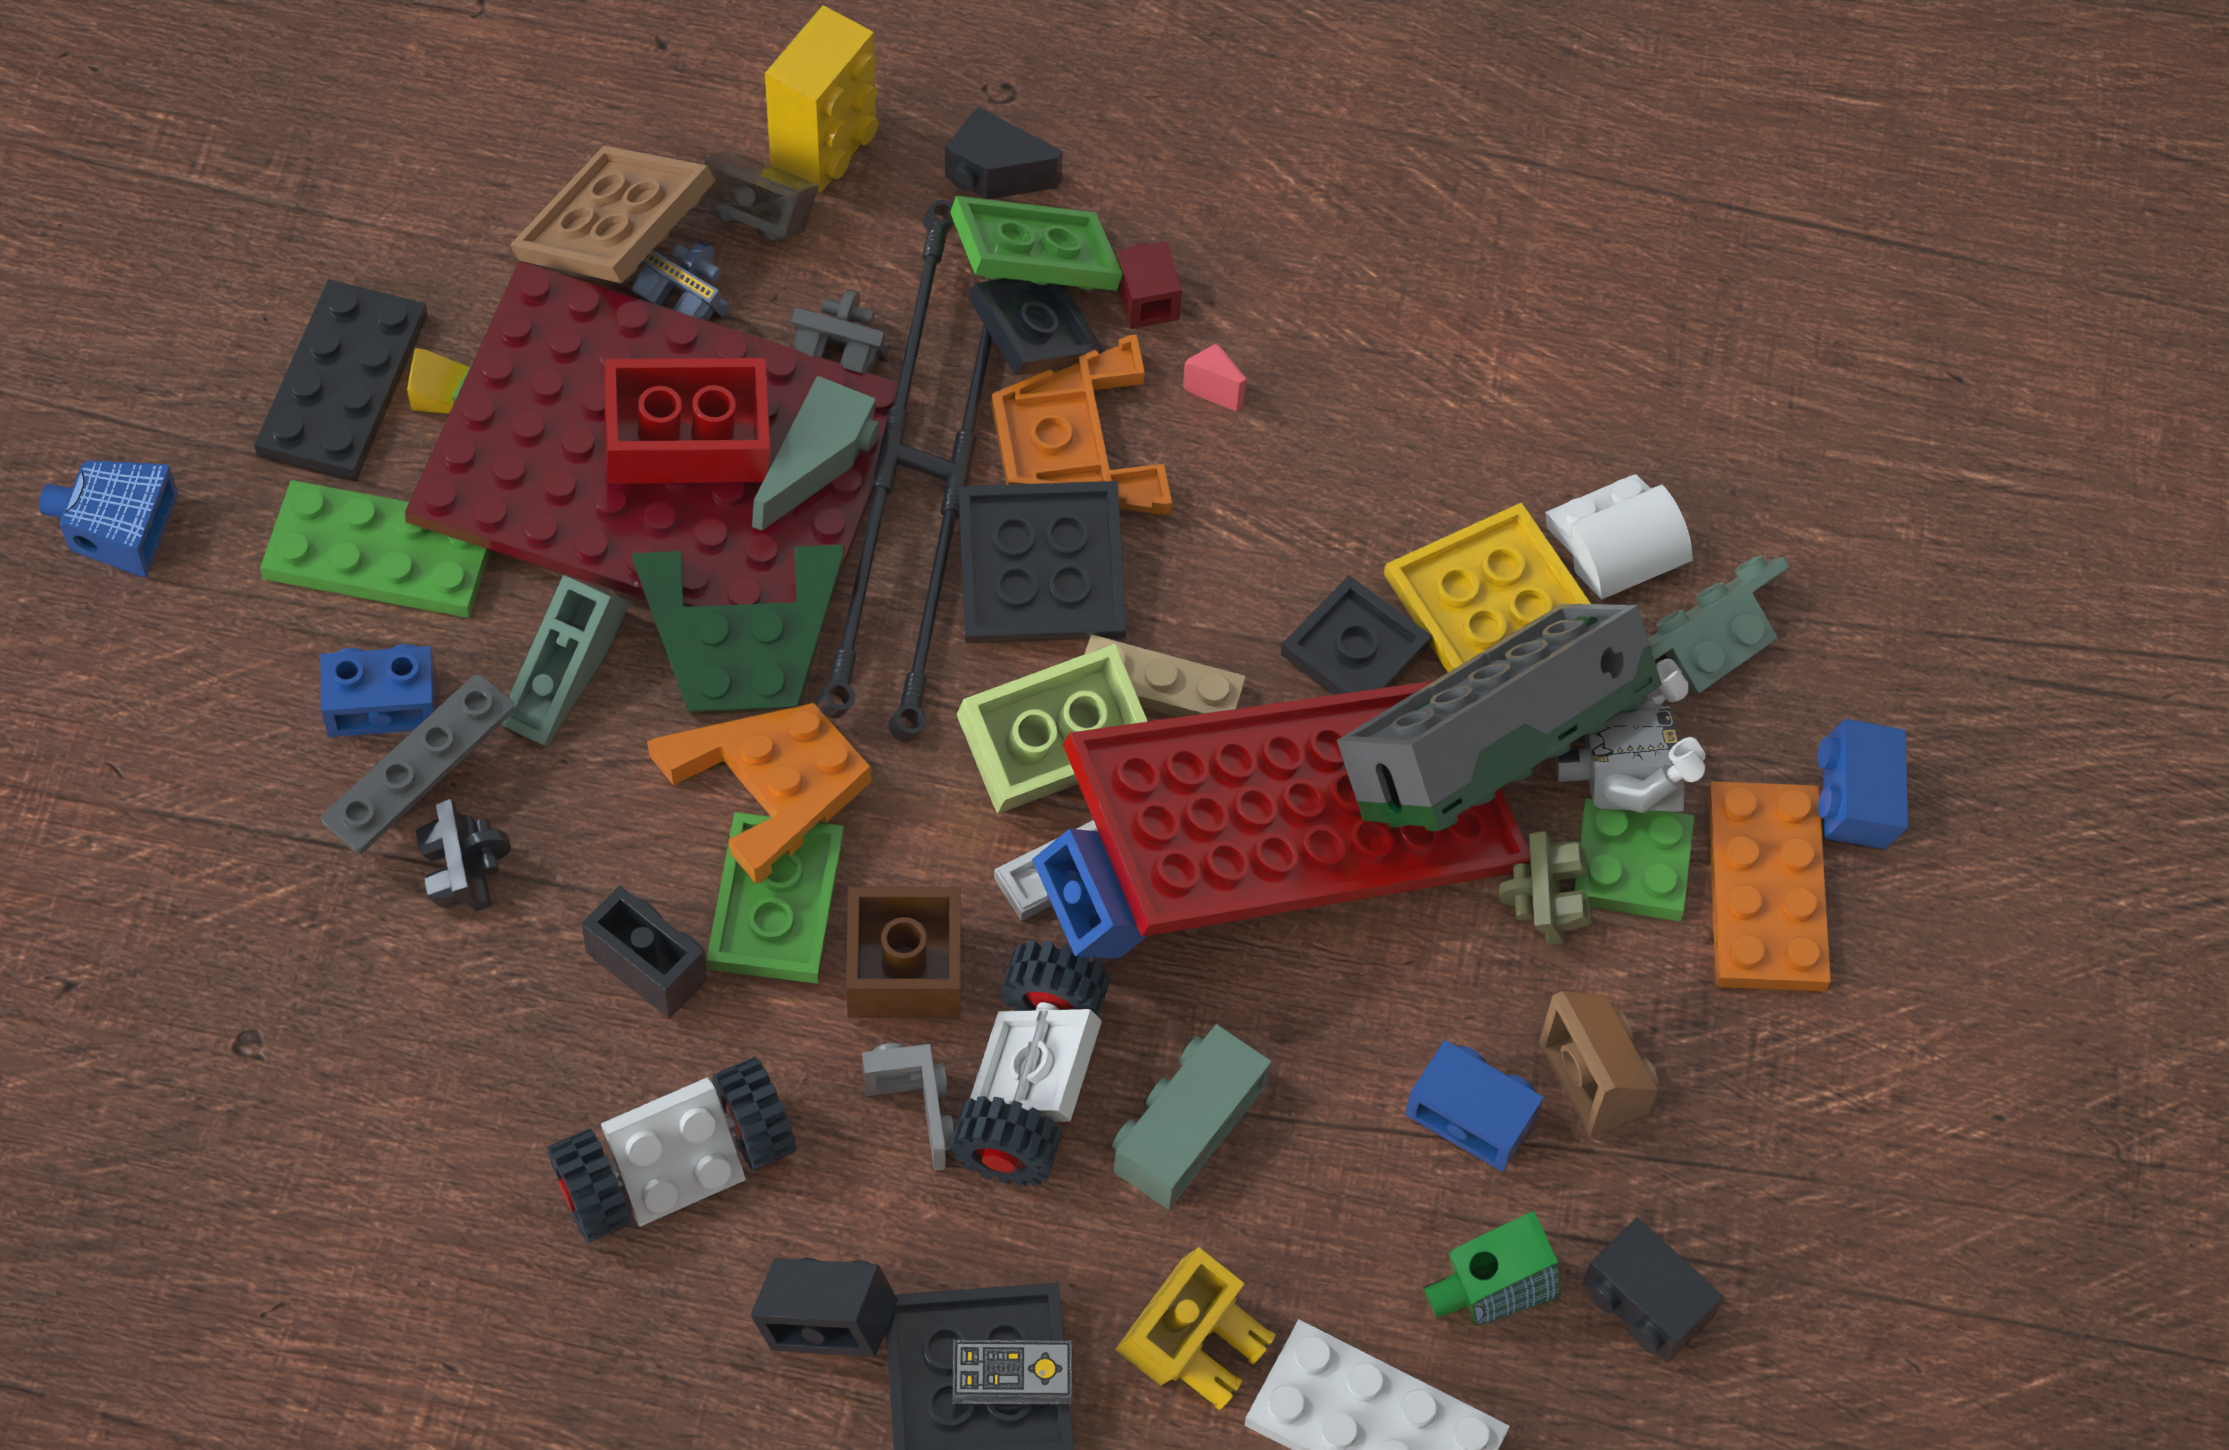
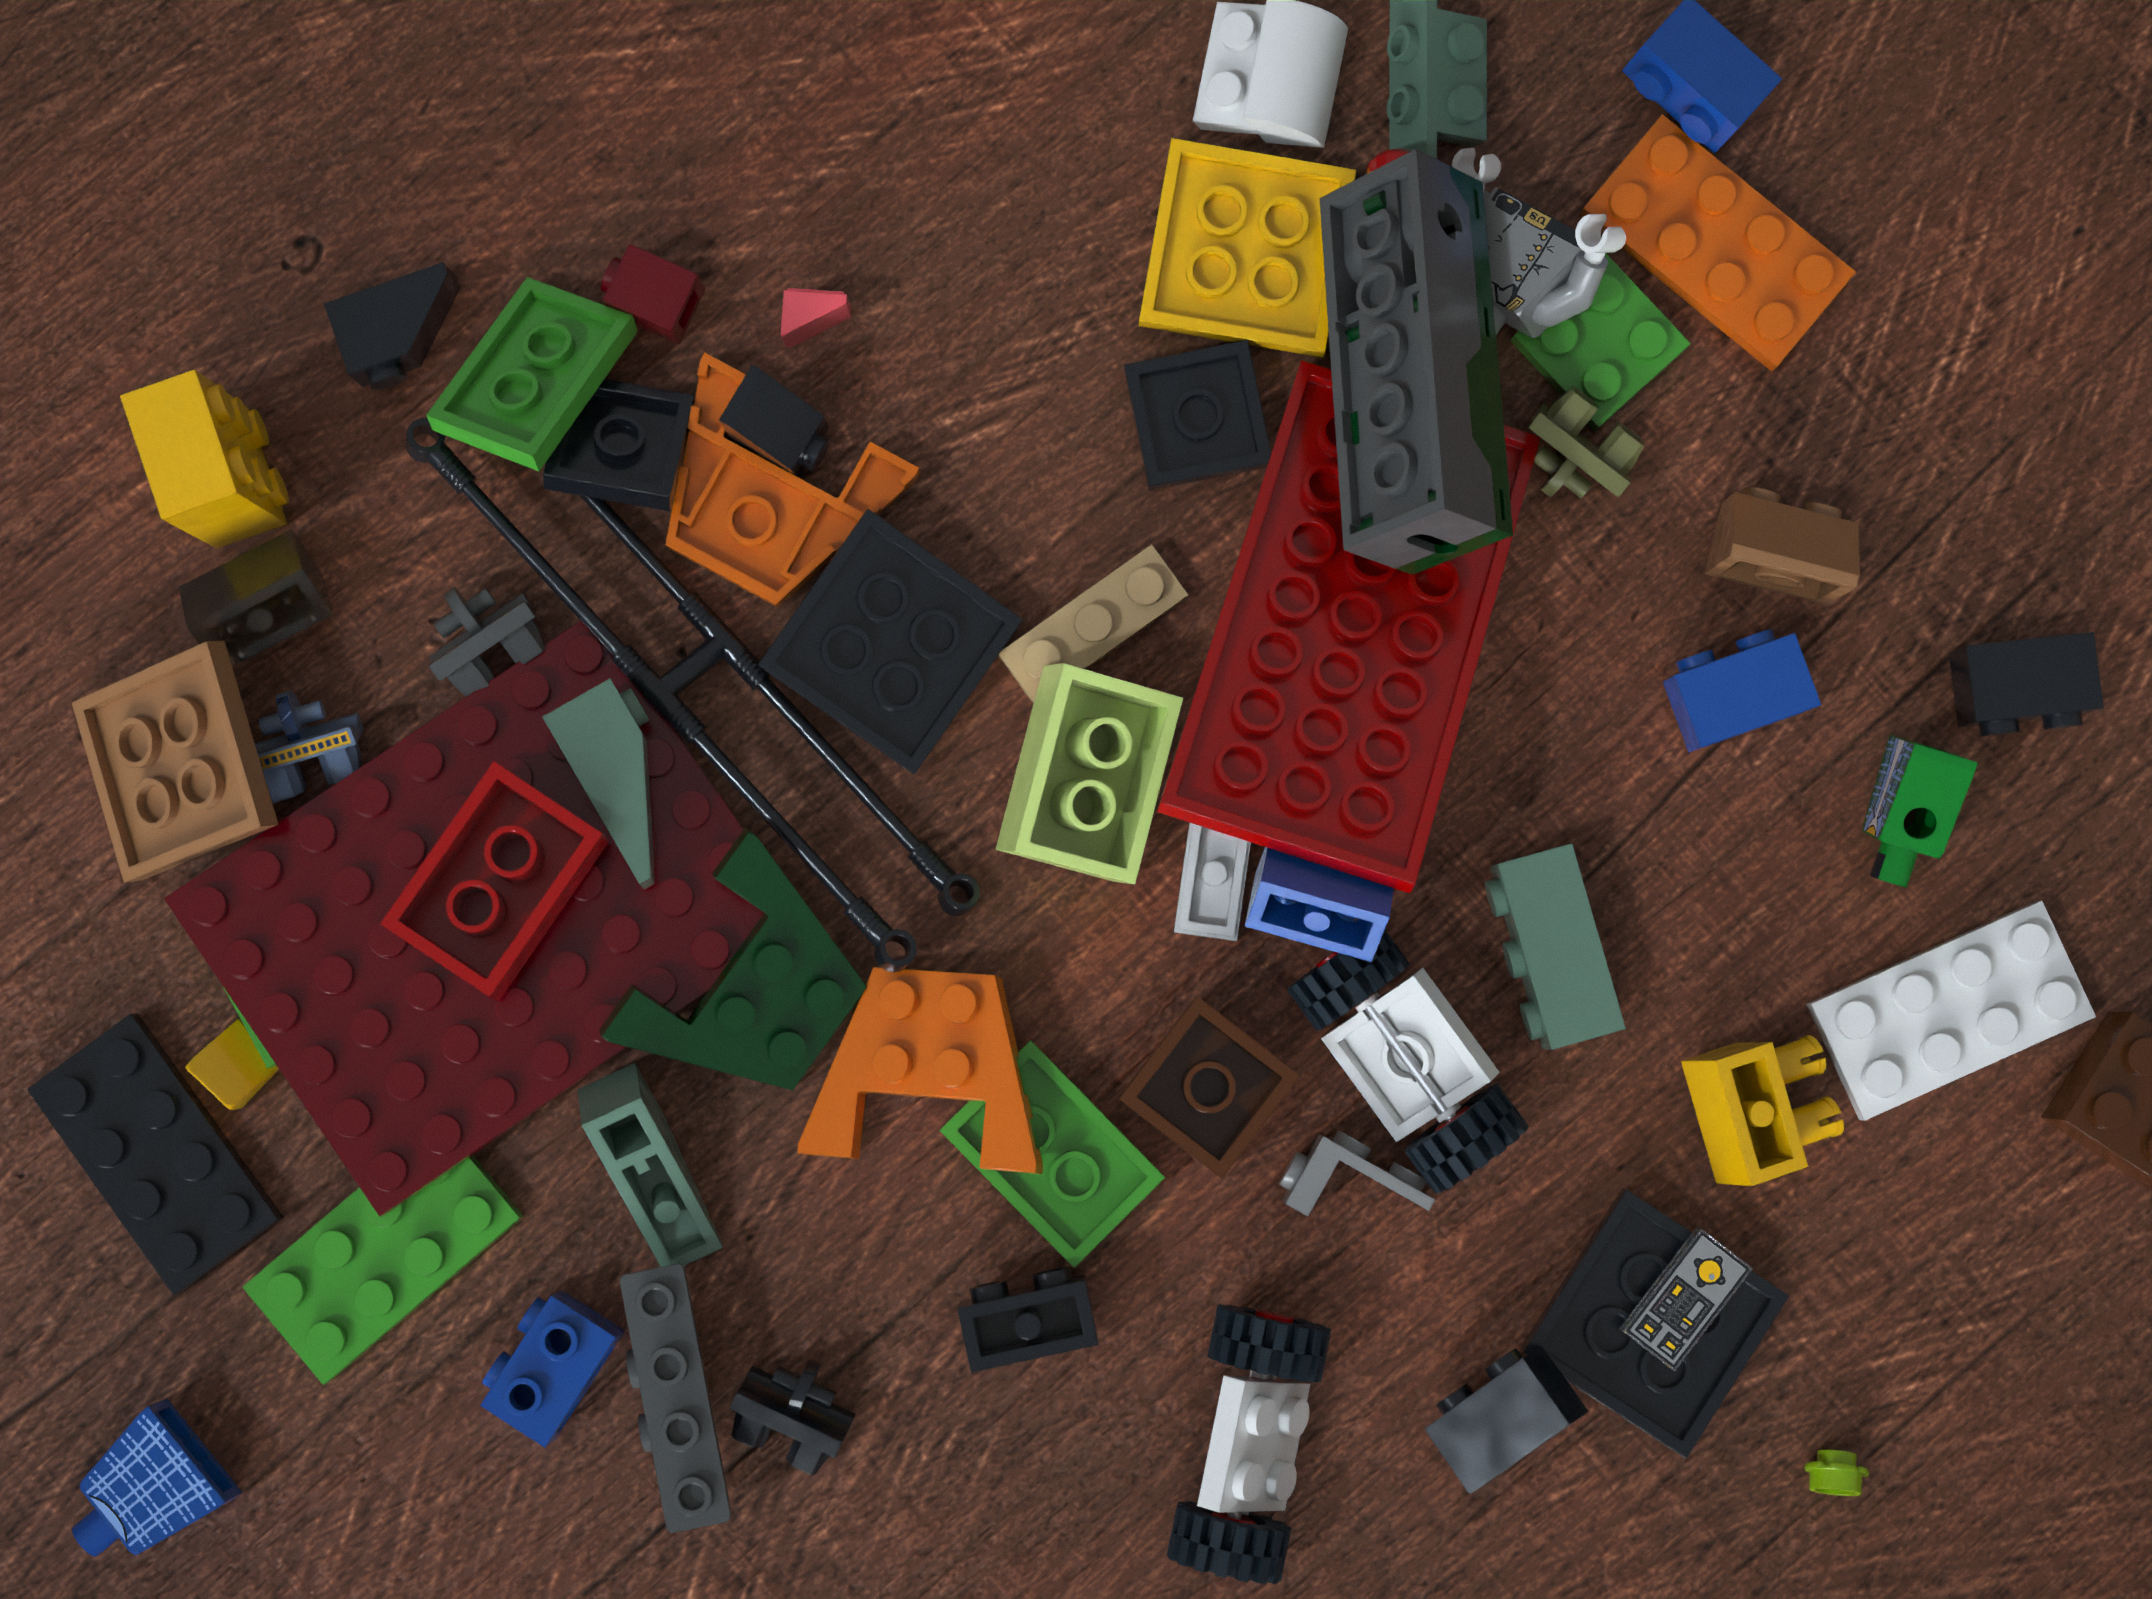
camera: 45 degrees left, 25 degrees up
(1125, 394) = (775, 424): none -> black slope

